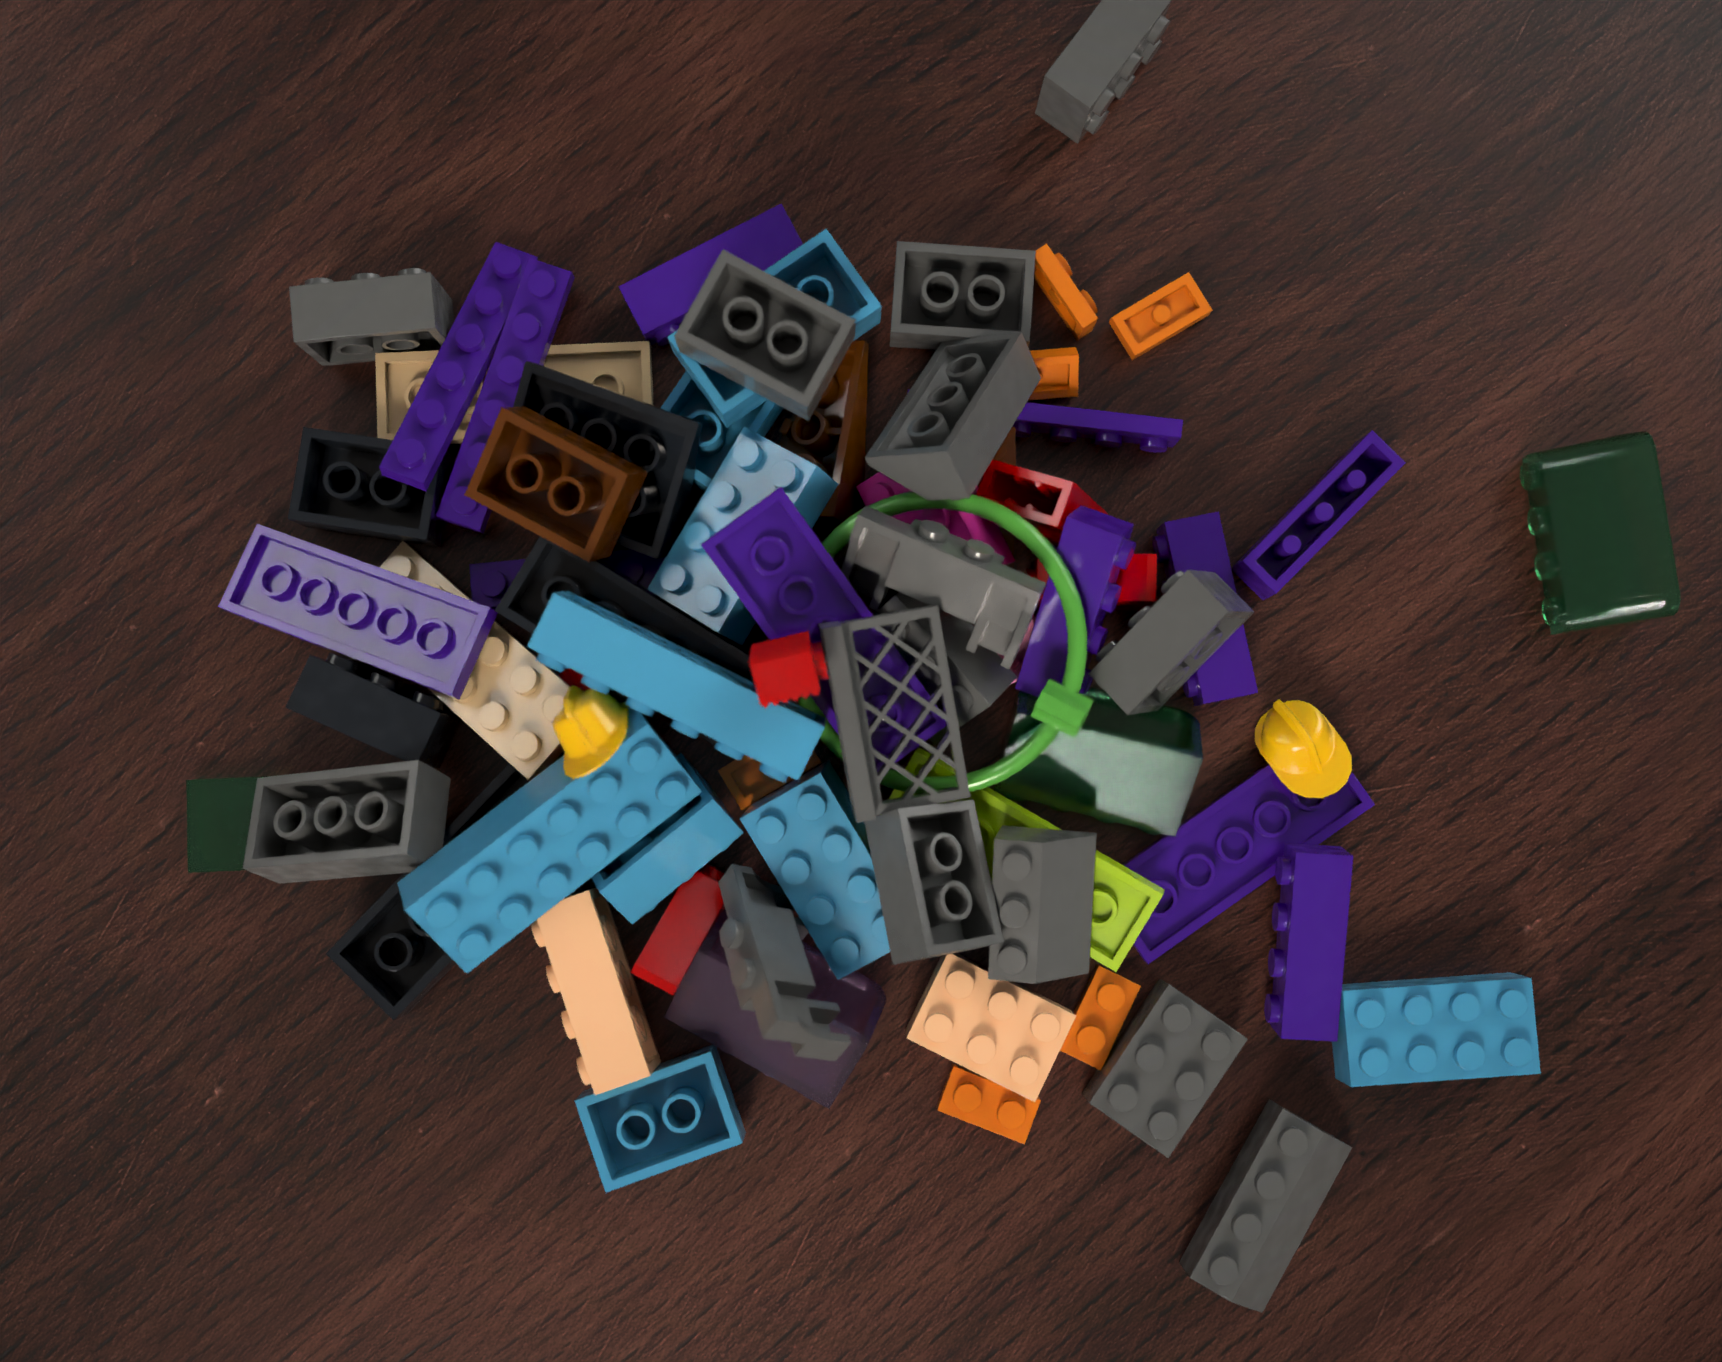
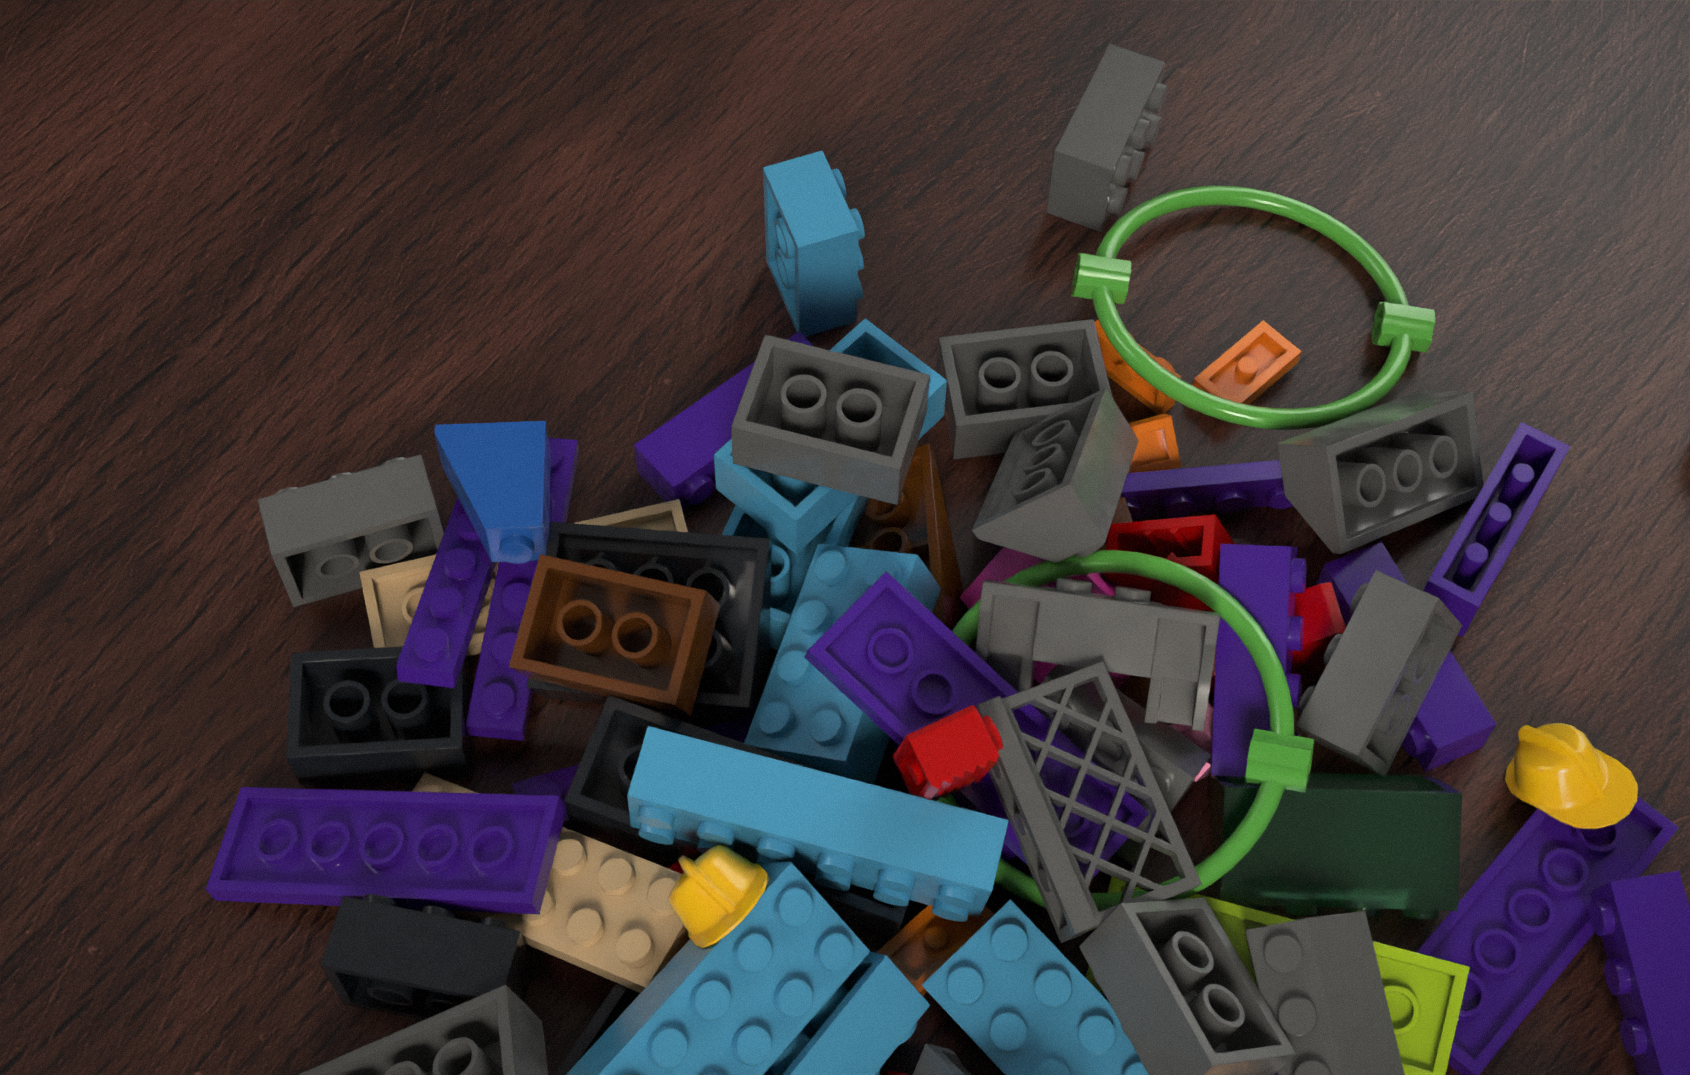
camera: 10 degrees left, 25 degrees down
(496, 313) = (502, 483): none -> blue slope
(810, 120) = (812, 243): none -> dark azure brick
(1243, 443) = (1384, 467): none -> dark grey slope
(1304, 301) = (1394, 324): none -> bright green piece

